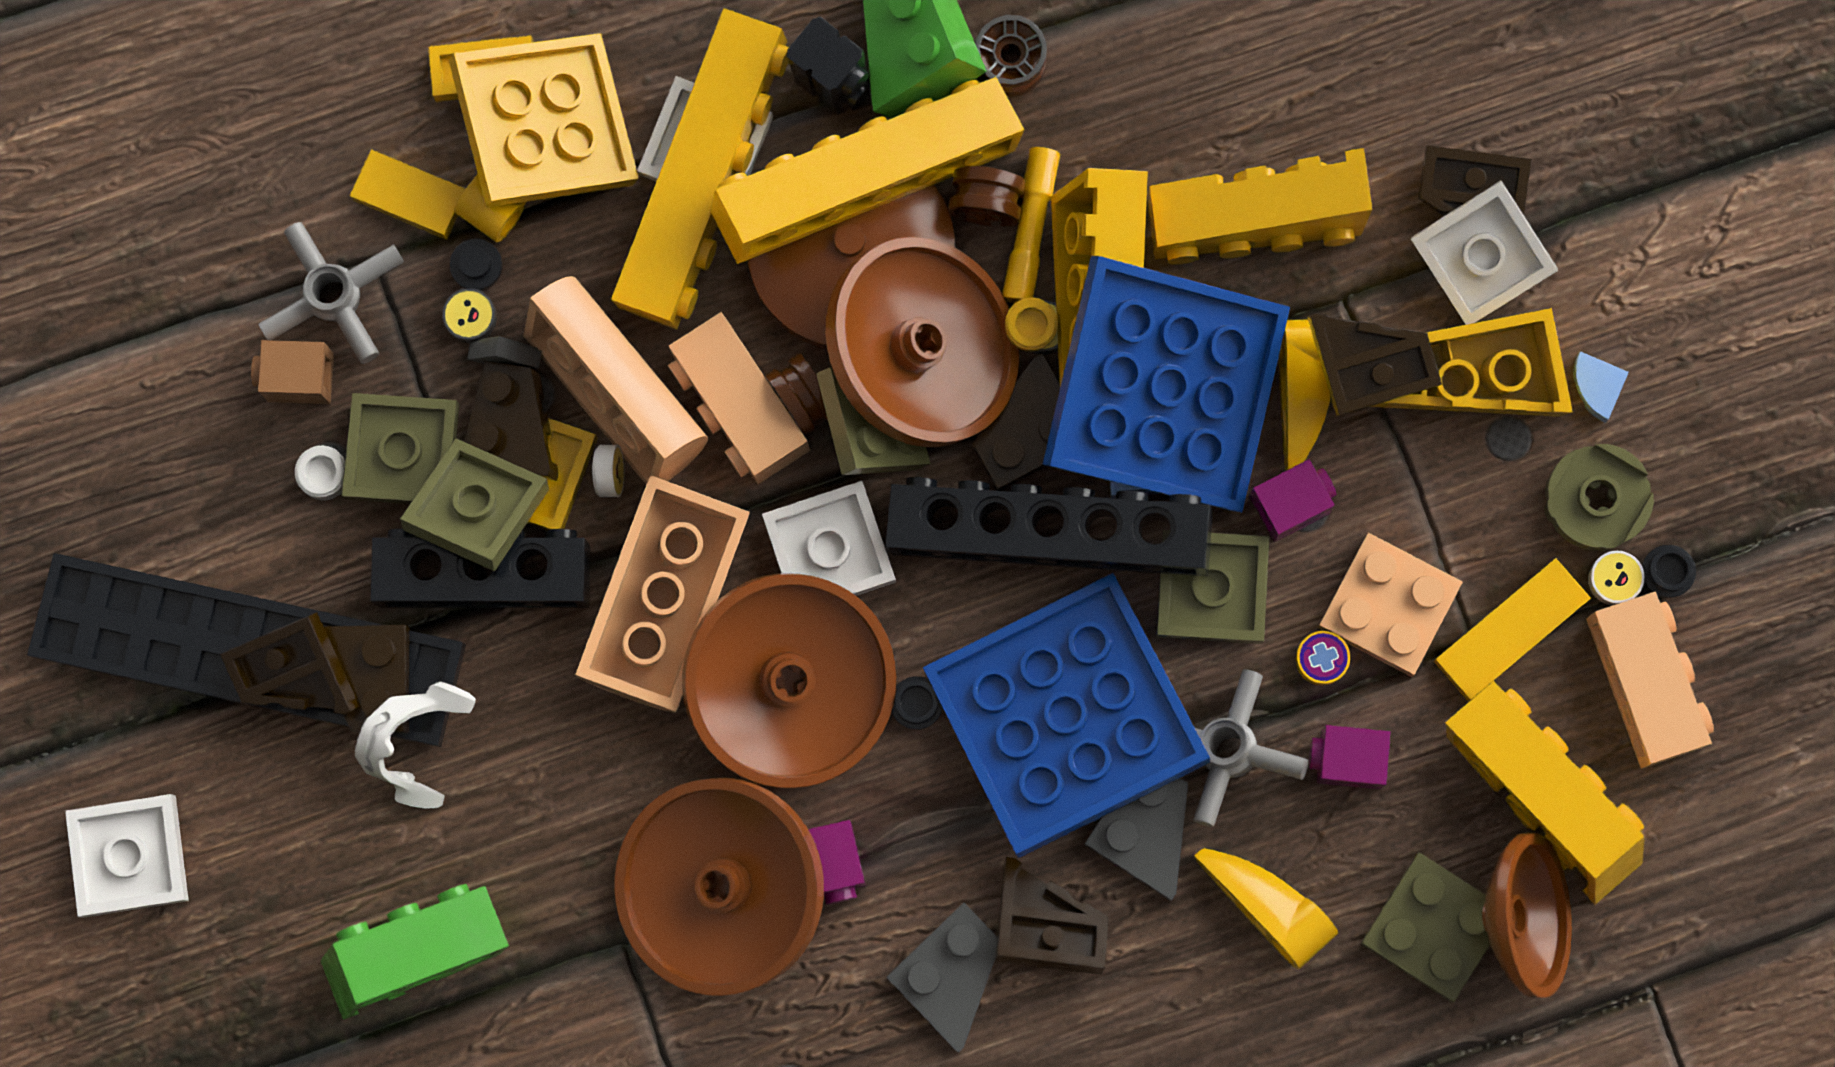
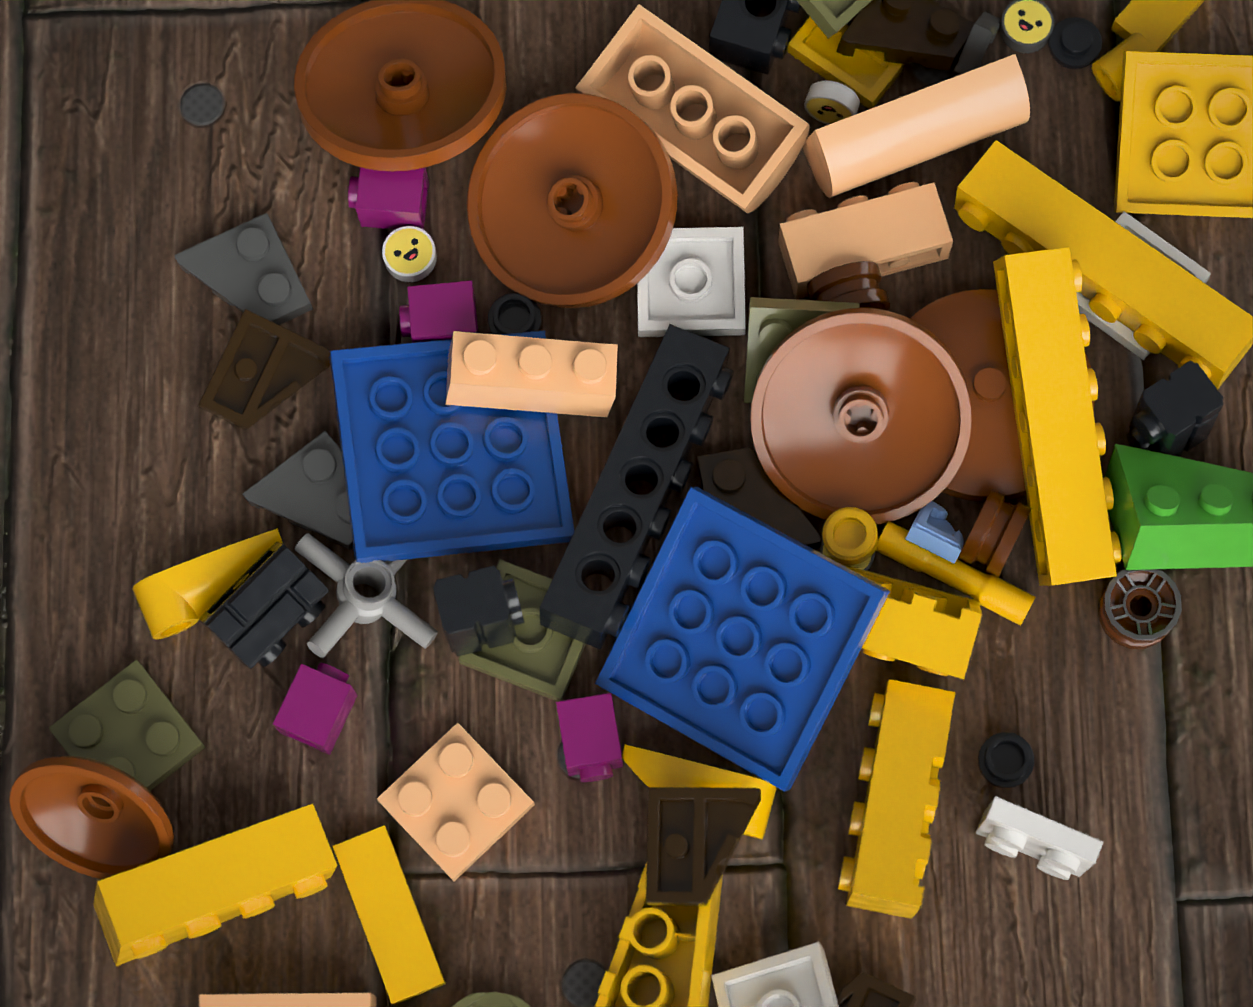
camera: 105 degrees right, 5 degrees down
(882, 826) = (409, 254): none -> light yellow tile
(940, 770) = (438, 311): none -> magenta brick
(979, 655) = (531, 374): none -> light nougat brick
(1003, 250) = (935, 533): none -> light blue tile
(1187, 132) = (1006, 760): none -> black plate
(1226, 623) = (478, 610): none -> black brick
(1260, 62) = (1056, 846): none -> white plate
(1275, 836) = (266, 606): none -> black brick
(1322, 658) = (425, 716): tile -> none

